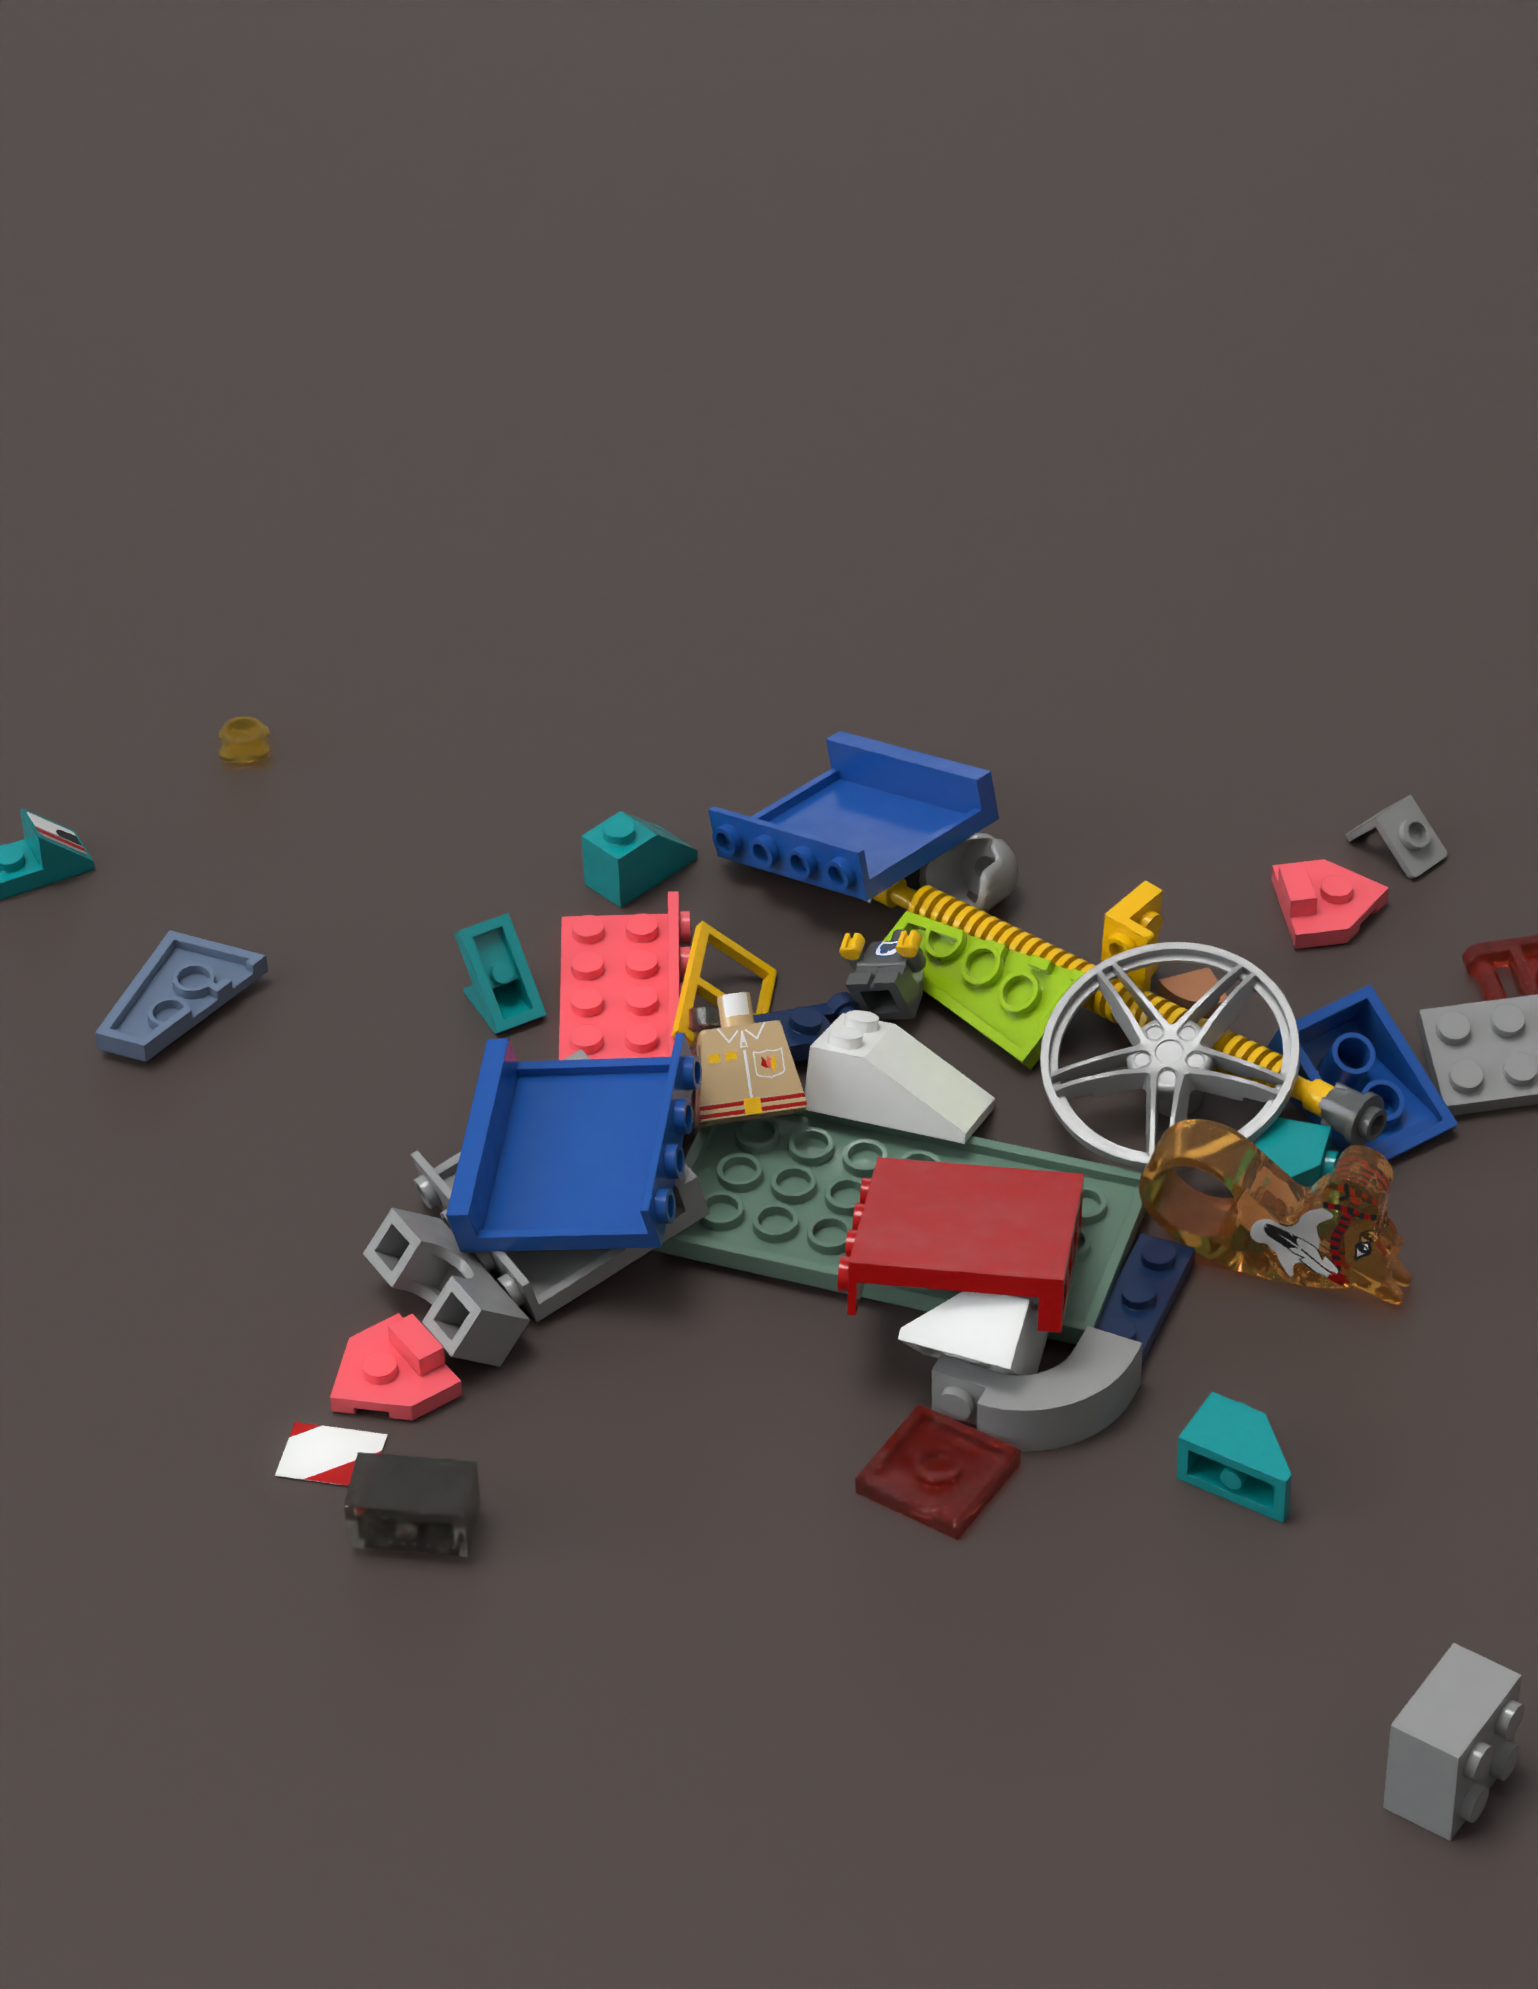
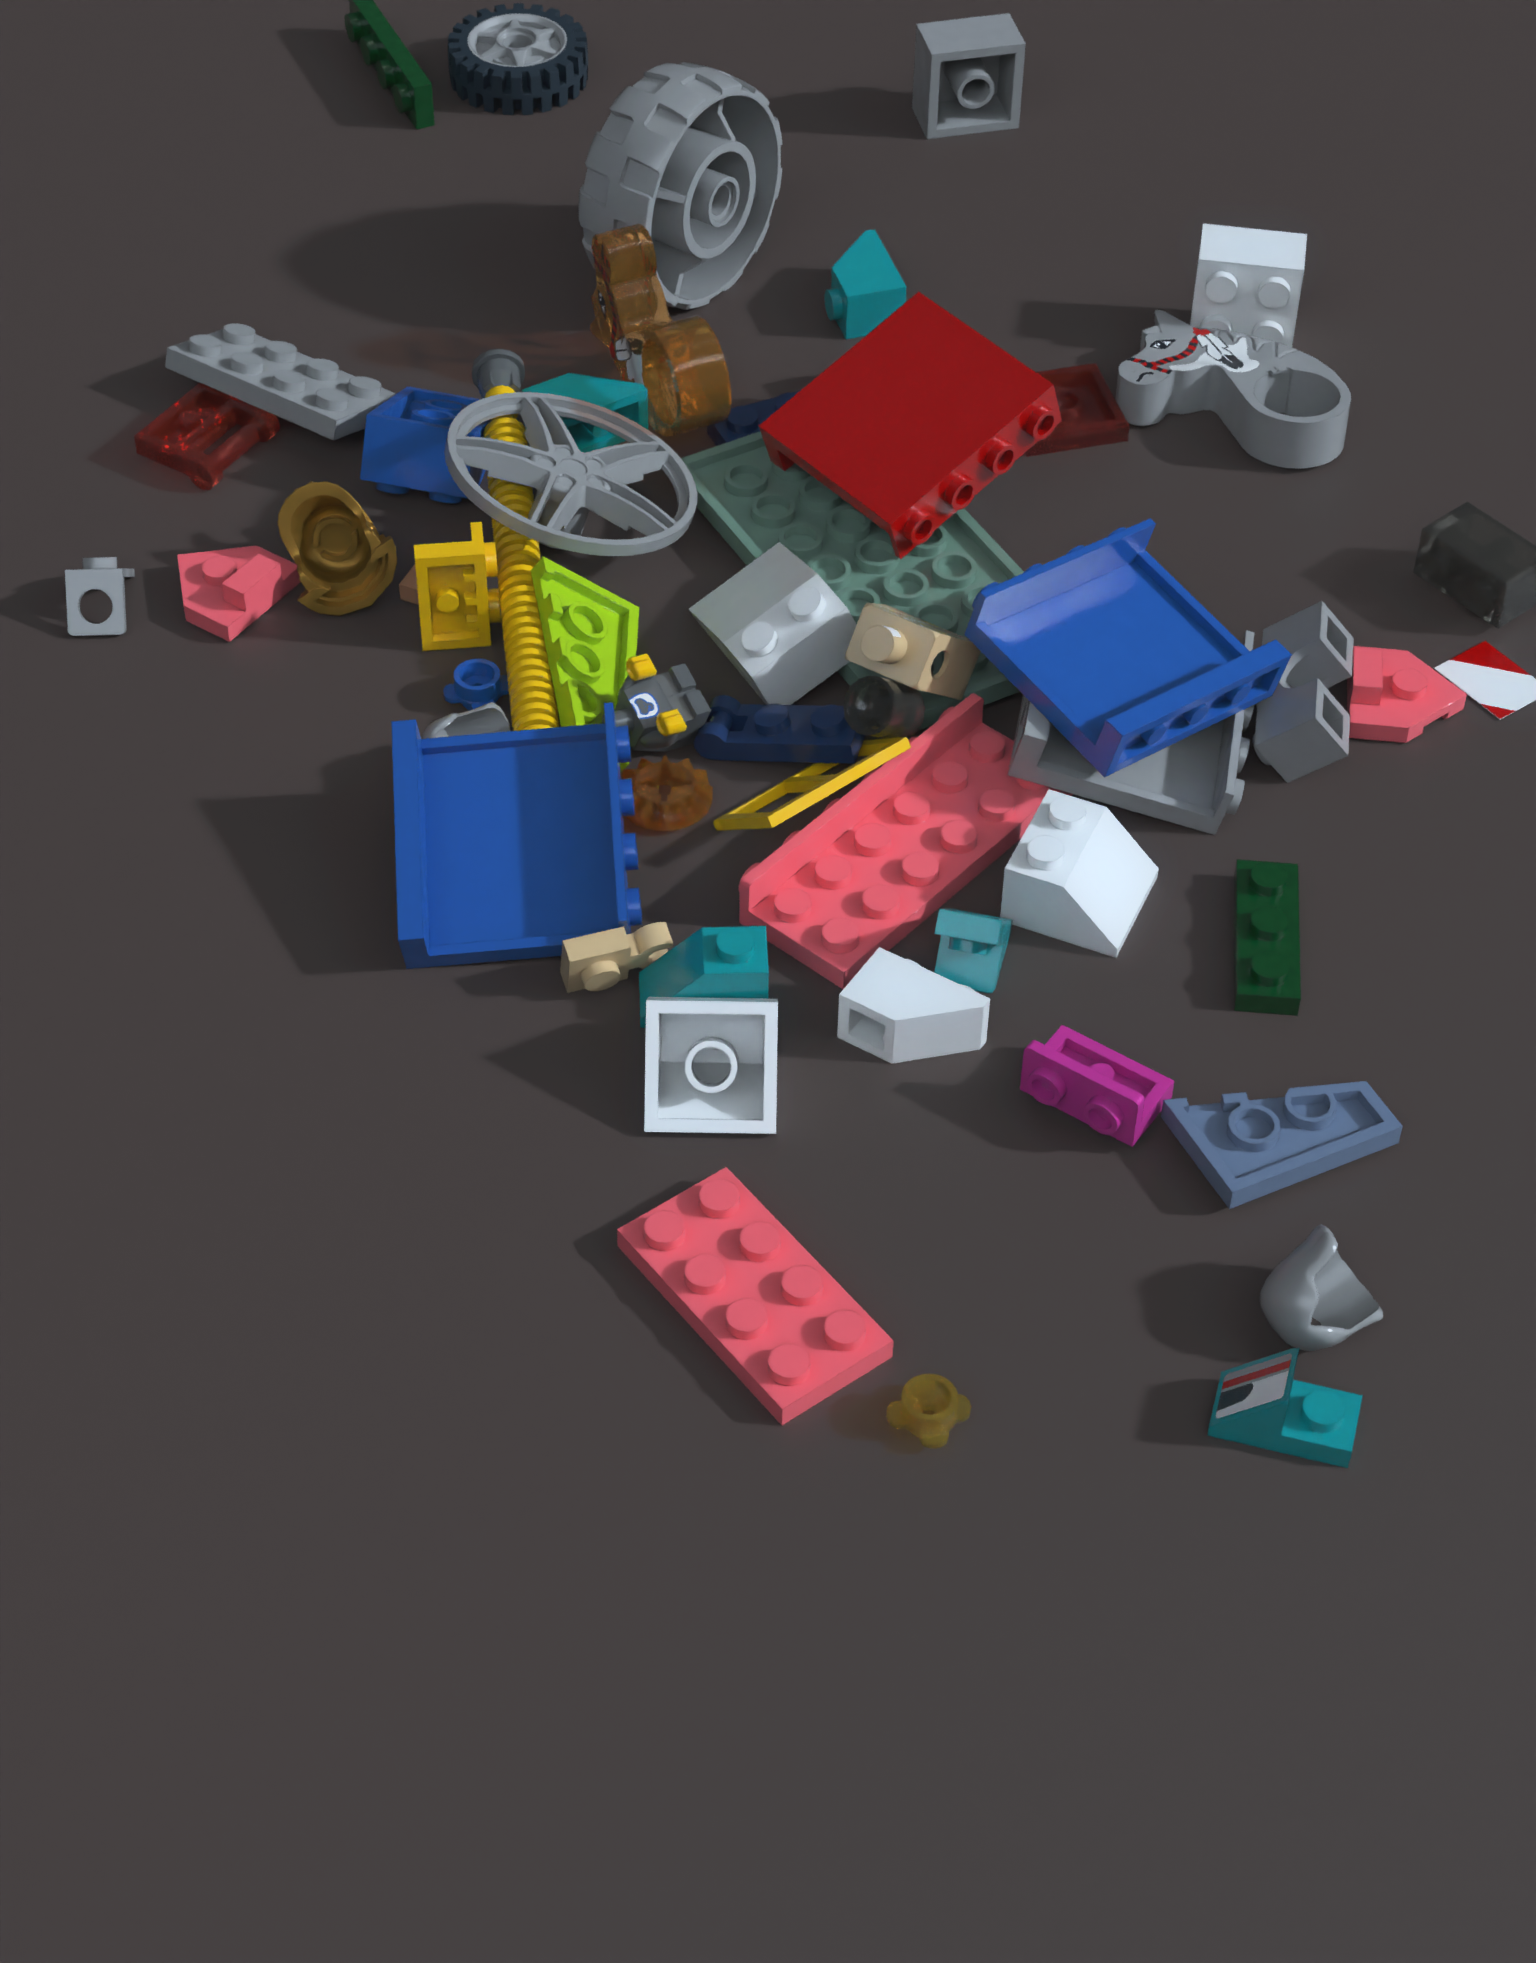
camera: 140 degrees left, 5 degrees up
(63, 897) = (1316, 1286): none -> light grey hair
(311, 1127) = (1266, 938): none -> dark green plate
(322, 939) = (1094, 1084): none -> dark pink bracket
(411, 739) = (755, 1295): none -> coral plate
(451, 1052) = (1077, 875): none -> white slope
(484, 897) = (910, 1011): none -> white slope
(556, 822) = (711, 1065): none -> white slope
(700, 838) = (607, 956): none -> tan plate
(811, 1590) = (1242, 382): none -> light grey animal
(816, 973) = (685, 806): none -> clear orange gear
(887, 1644) = (1249, 281): none -> white brick
(1056, 932) = (476, 684): none -> blue plate
(1284, 947) = (335, 549): none -> pearl gold helmet
(1438, 1315) = (693, 165): none -> light grey wheel

